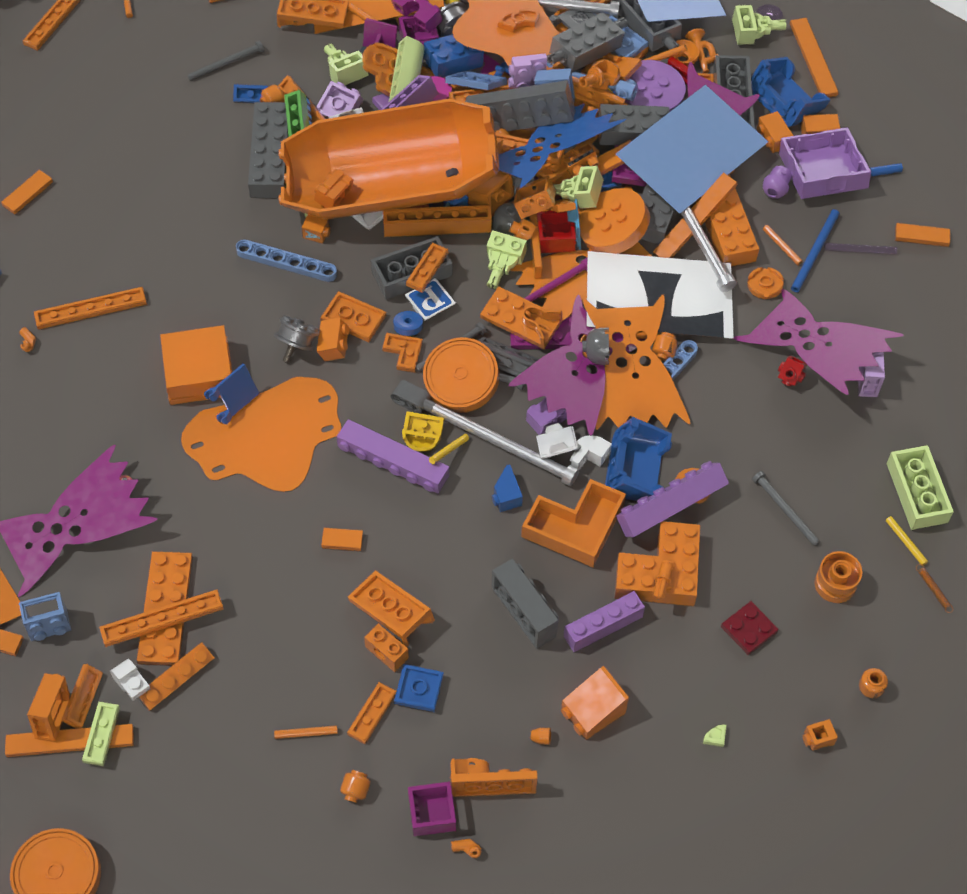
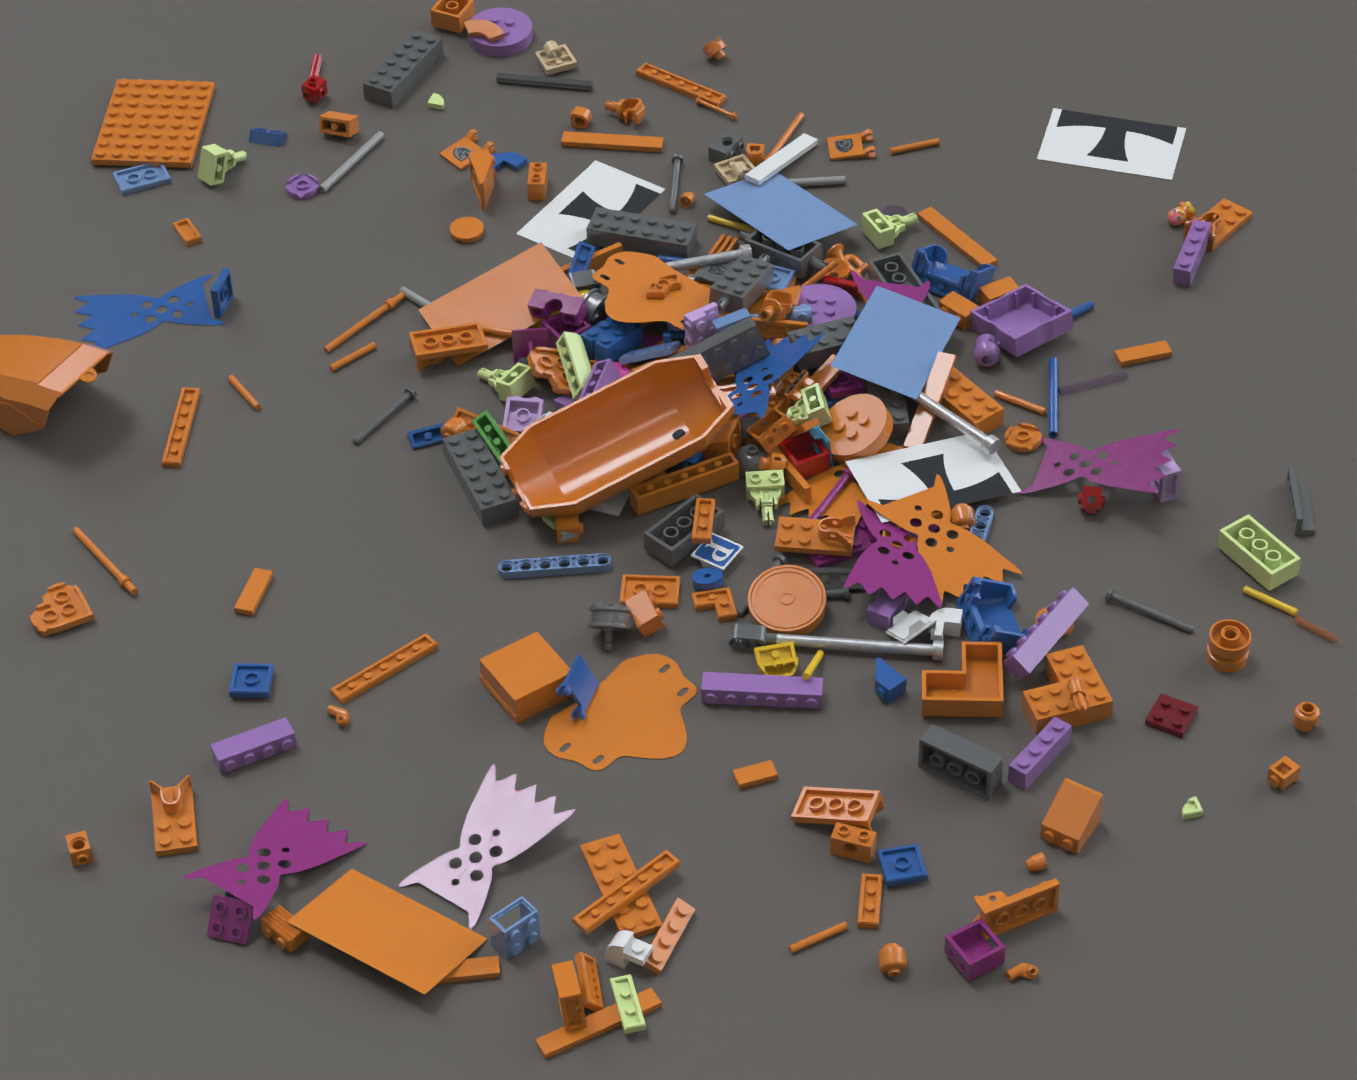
camera: 20 degrees left, 15 degrees down
(333, 189) = (568, 485): orange brick -> none
(597, 346) = (906, 531): dark grey cylinder -> none

